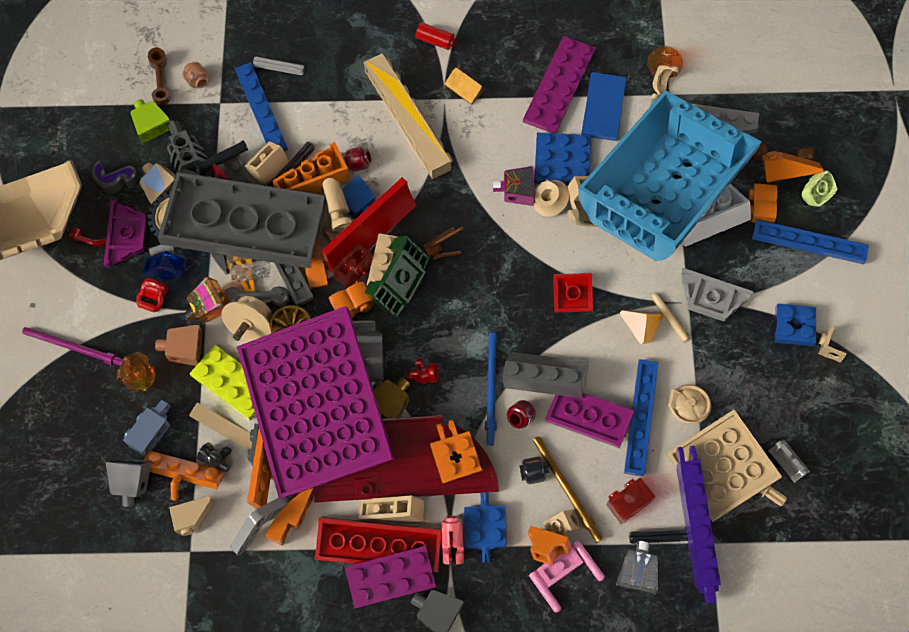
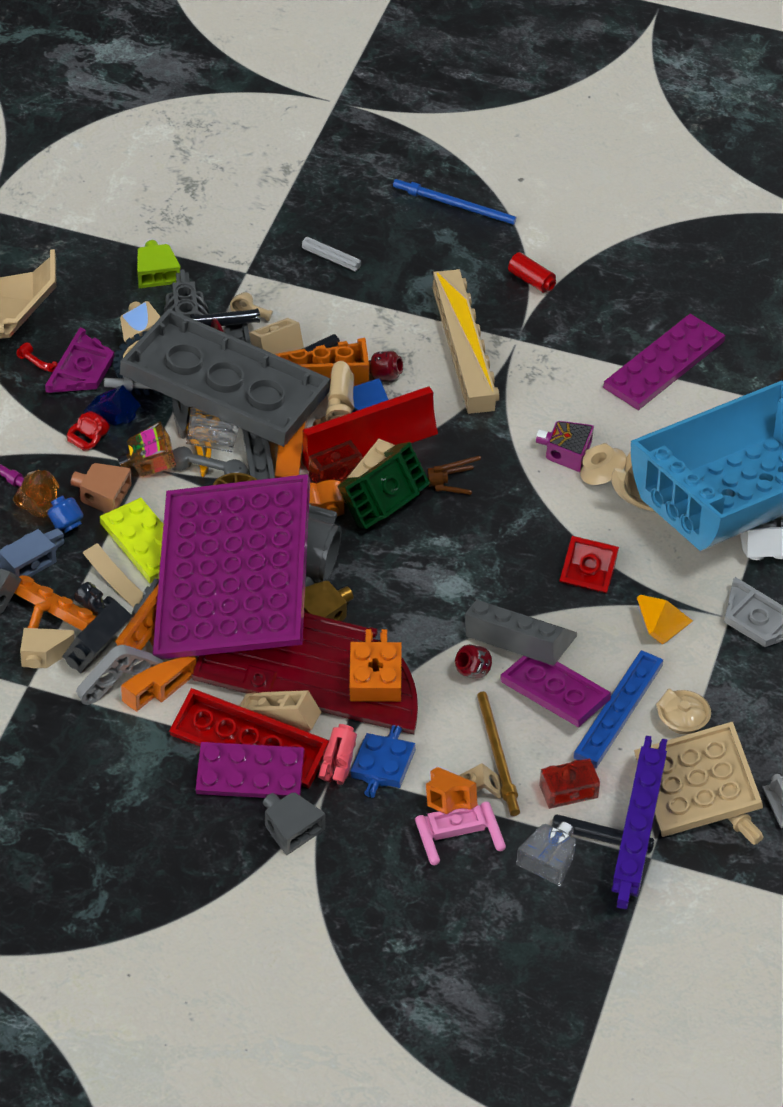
camera: 15 degrees right, 20 degrees down
(114, 181) = (94, 310): dark grey animal -> none
(158, 61) = (189, 212): reddish brown piece -> none
(162, 383) = (65, 514): none -> blue head
(195, 75) = (229, 235): nougat head -> none
(229, 136) = (245, 302): none -> tan bar
(229, 497) = (97, 636): none -> black brick
(247, 318) = (187, 469): tan piece -> none
(260, 105) = (292, 283): blue plate -> none
(423, 374) = (373, 593): red piece -> none
(464, 86) = (546, 331): slope -> none
(491, 424) = (434, 663): blue bar -> none
(534, 470) = (465, 721): black head -> none
(561, 157) = (629, 422): blue plate -> none
(603, 106) = (711, 387): blue tile -> none
(670, 317) = (699, 624): tan bar -> none

